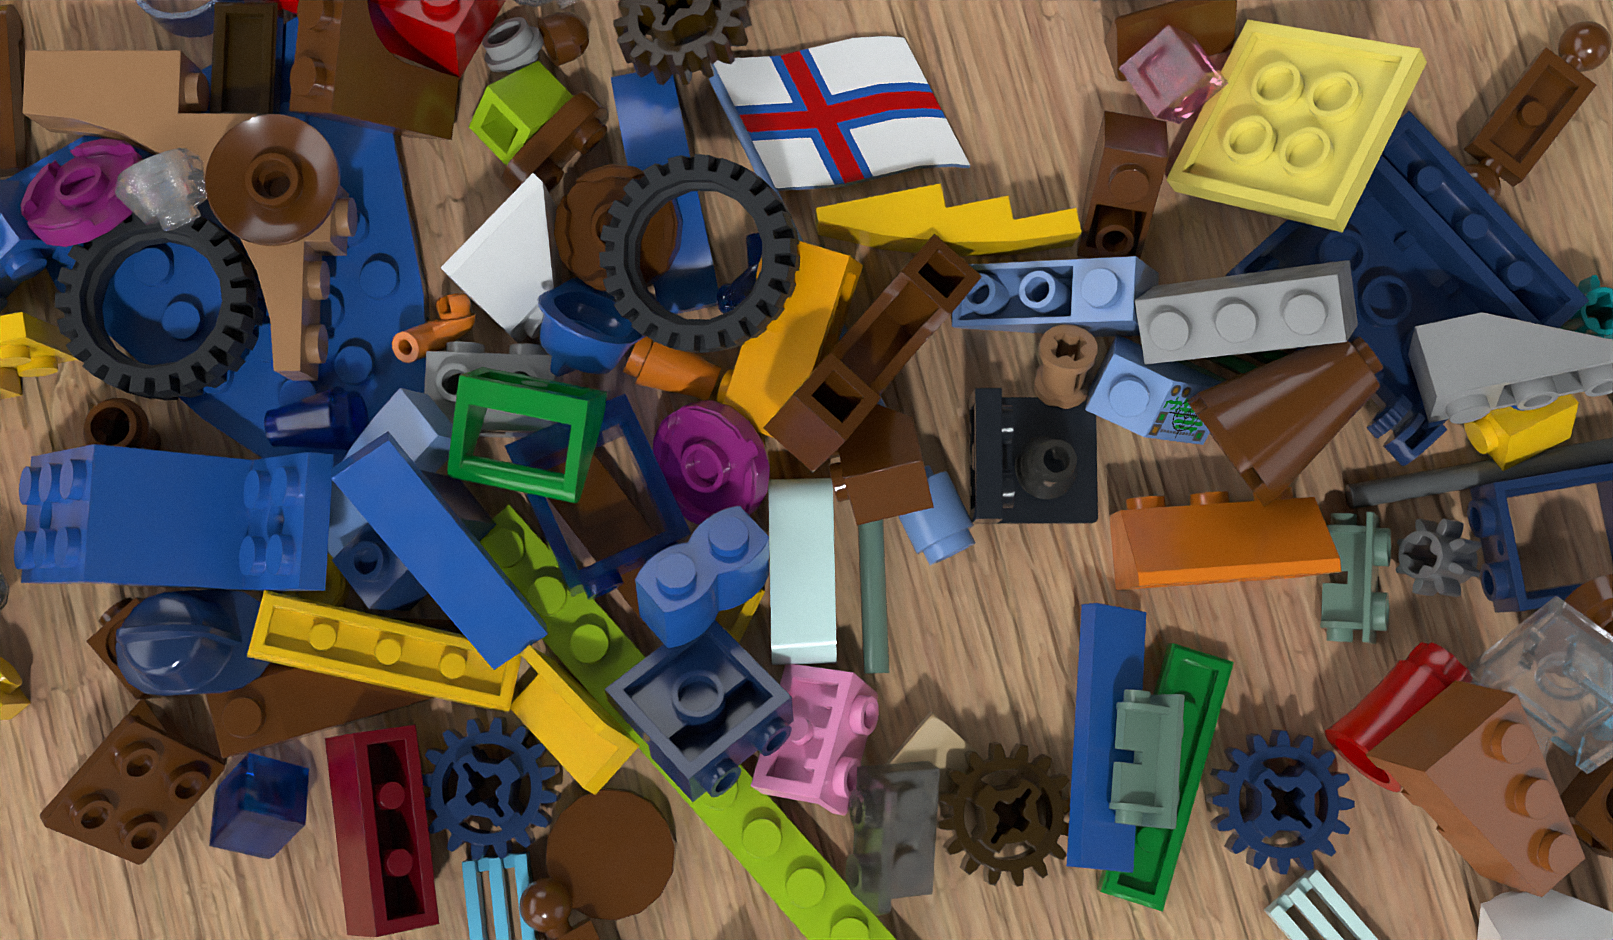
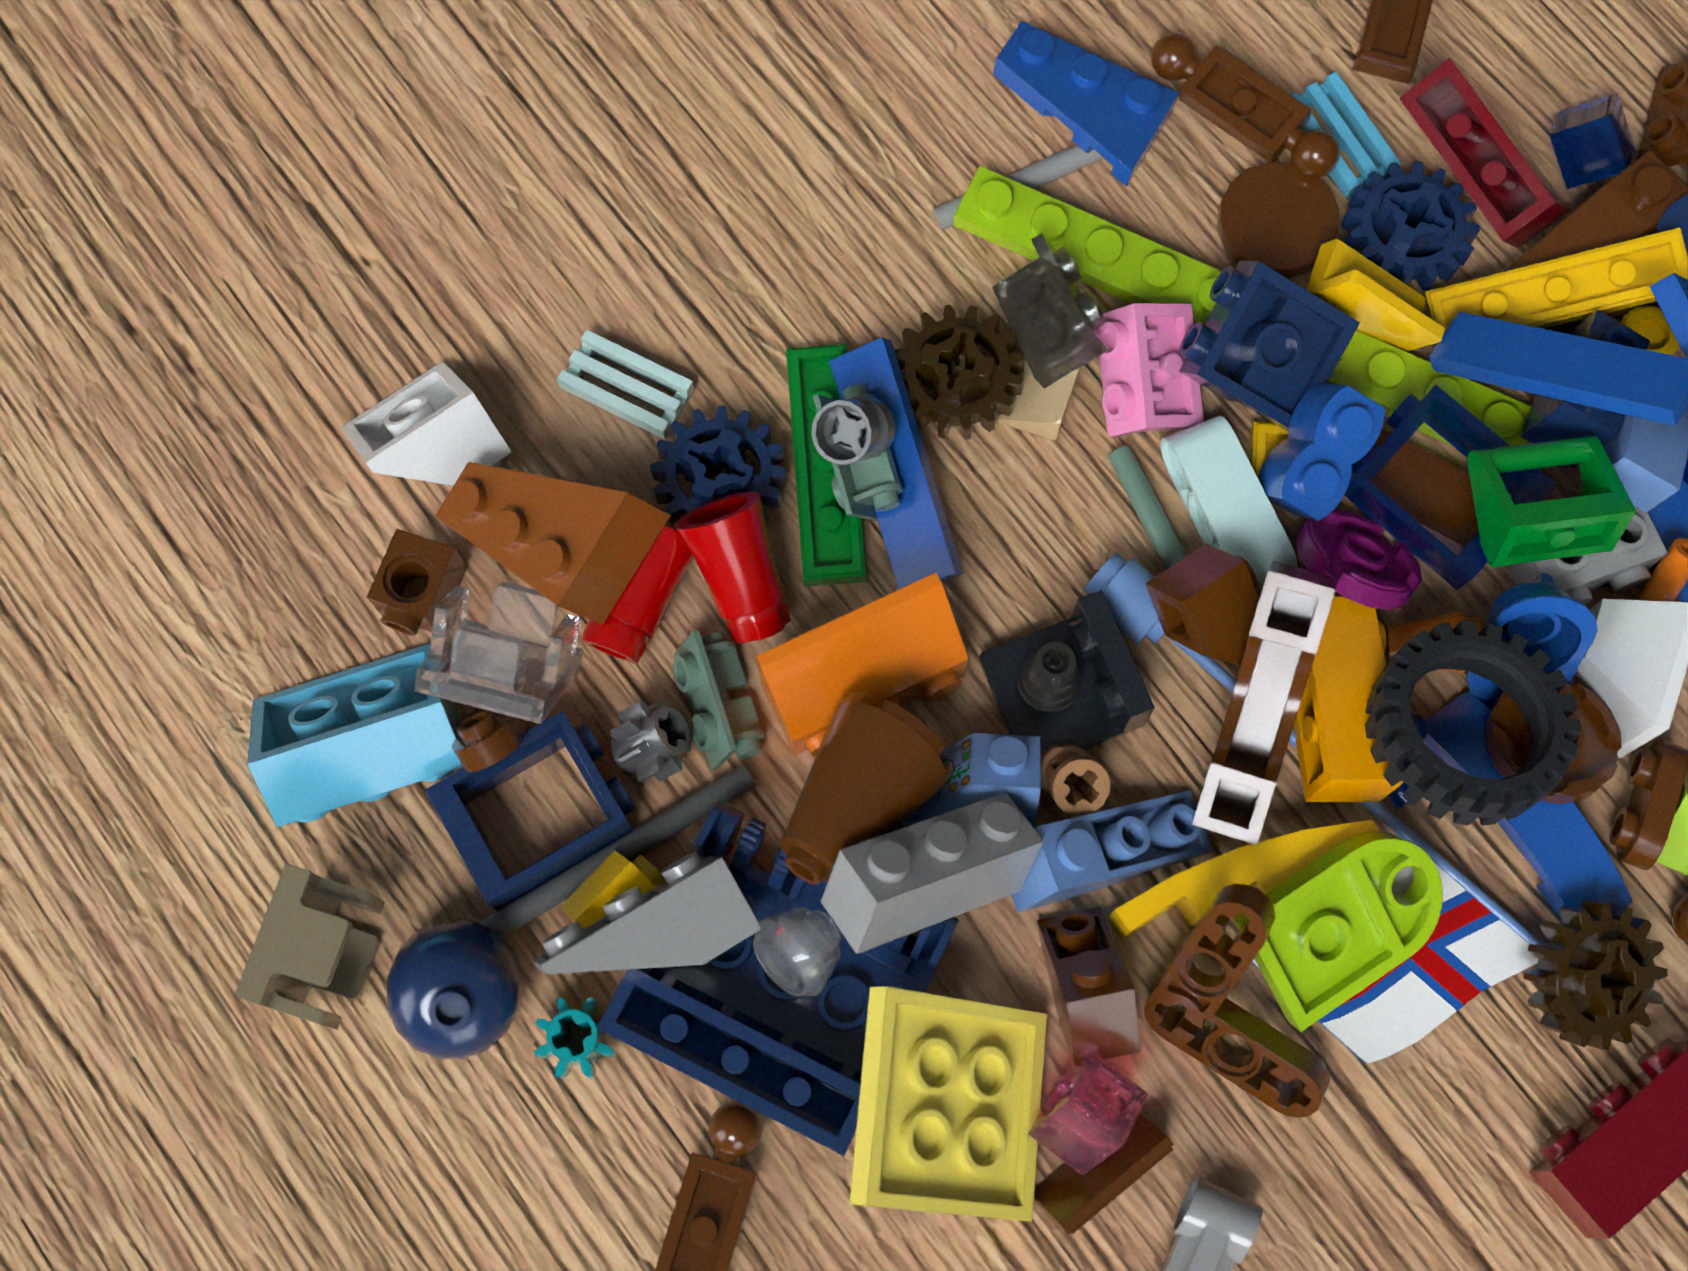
camera: 160 degrees right, 10 degrees down
(886, 144) = (1343, 926): none -> lime plate
(1036, 128) = (1206, 999): none -> reddish brown beam
(1157, 768) = (839, 433): none -> dark grey wheel
(1305, 694) = (737, 564): none -> red plant
(1383, 302) = (798, 950): none -> clear cone

